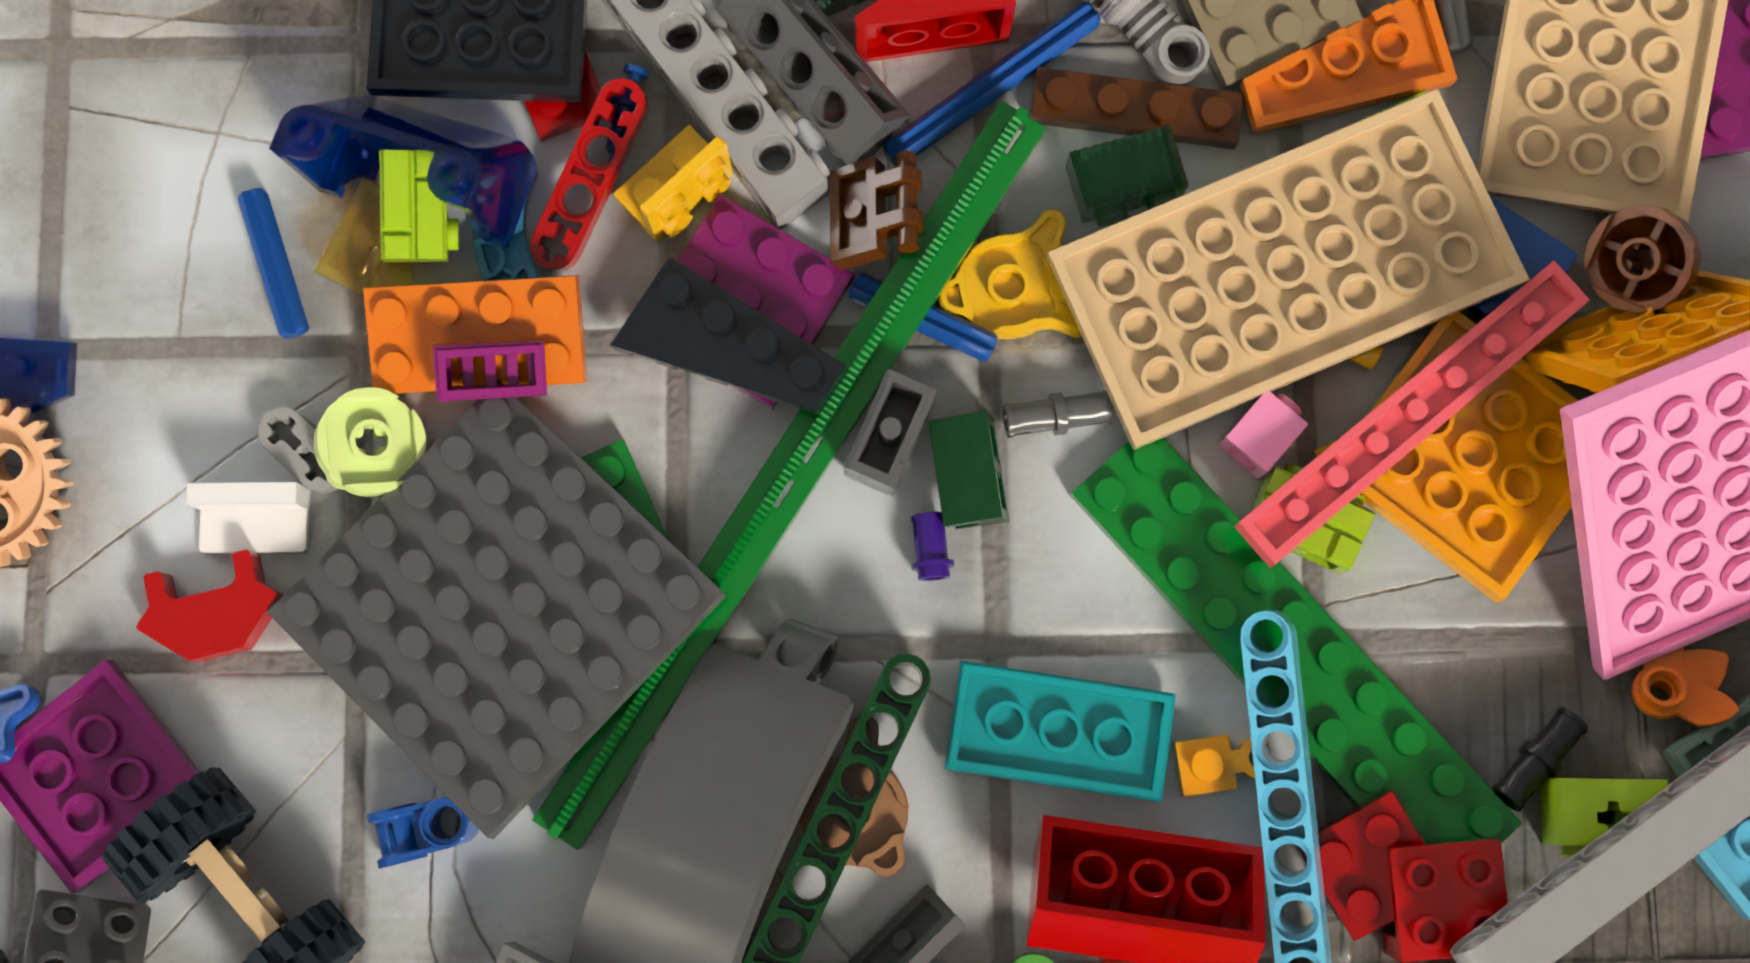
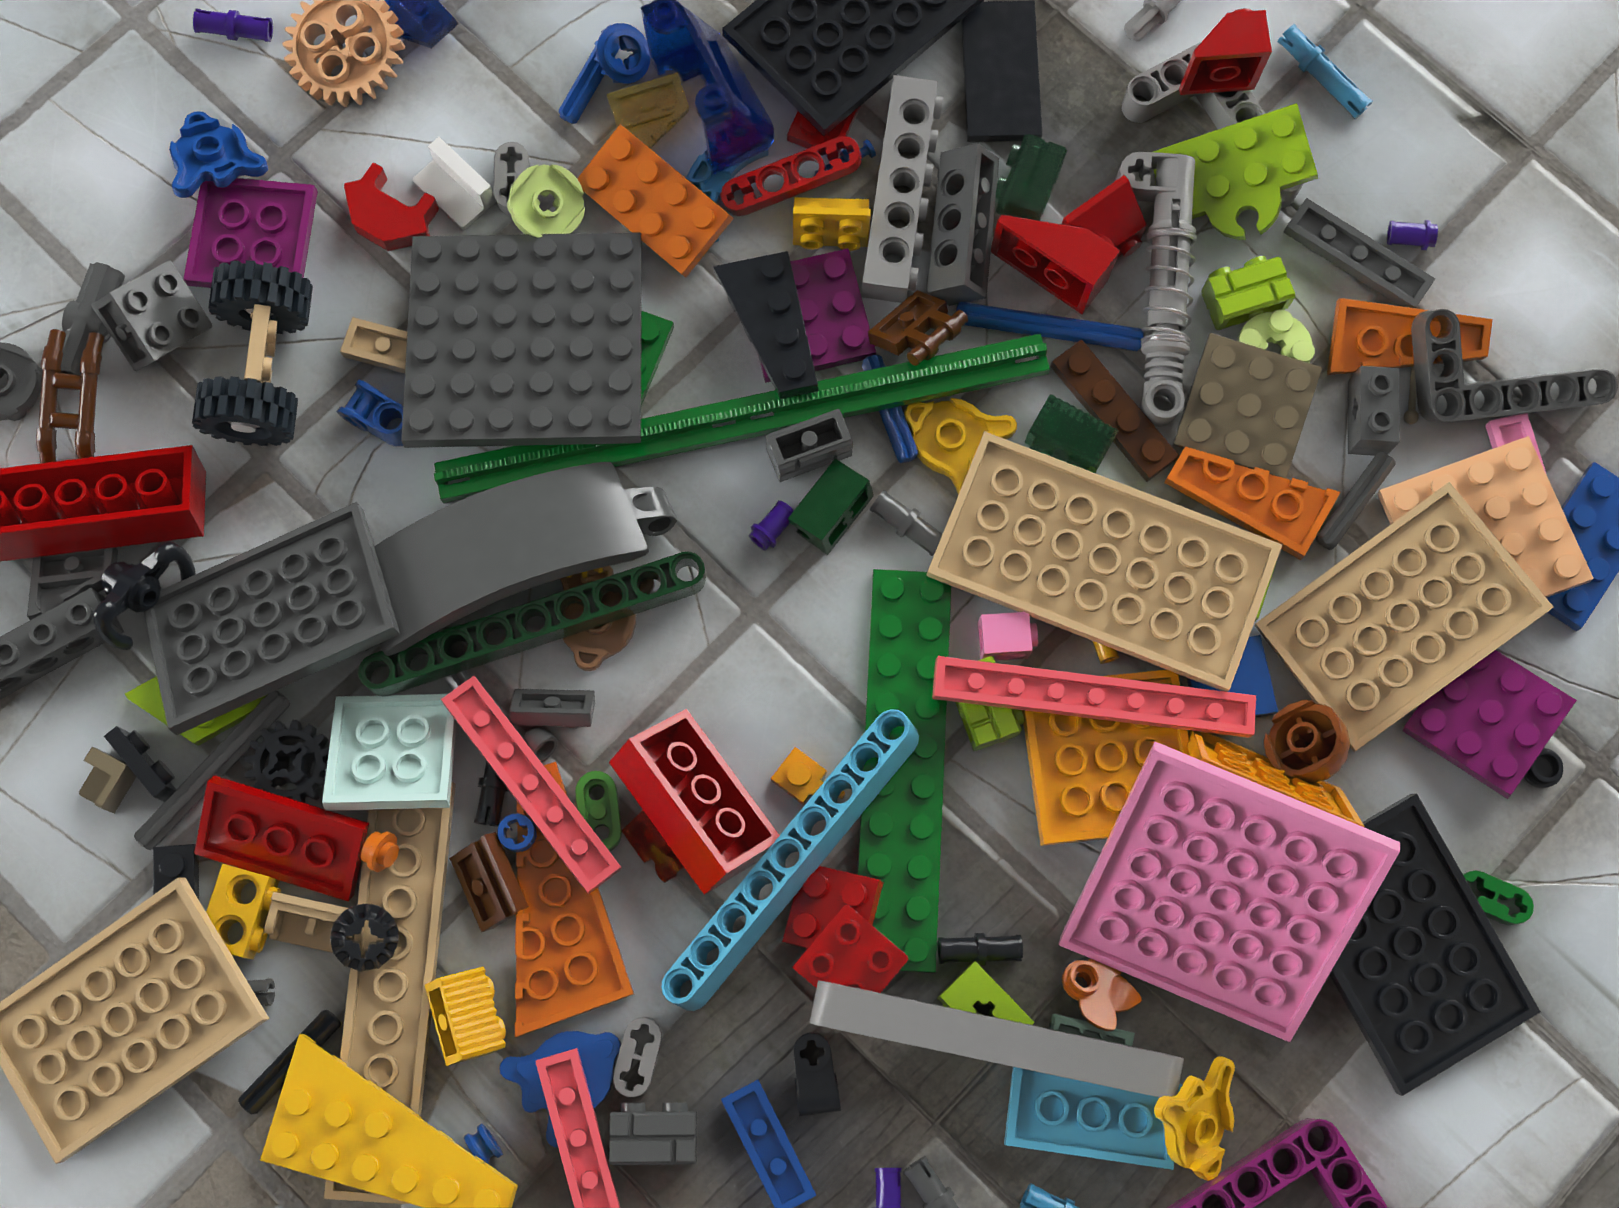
camera: 45 degrees right, 5 degrees down
(308, 211) = (629, 40): none -> blue gear
(346, 759) = (375, 345): none -> tan plate
(411, 217) = (675, 113): lime brick -> none
(469, 391) = (616, 199): magenta slope -> none
(1060, 731) = (741, 682): teal plate -> none

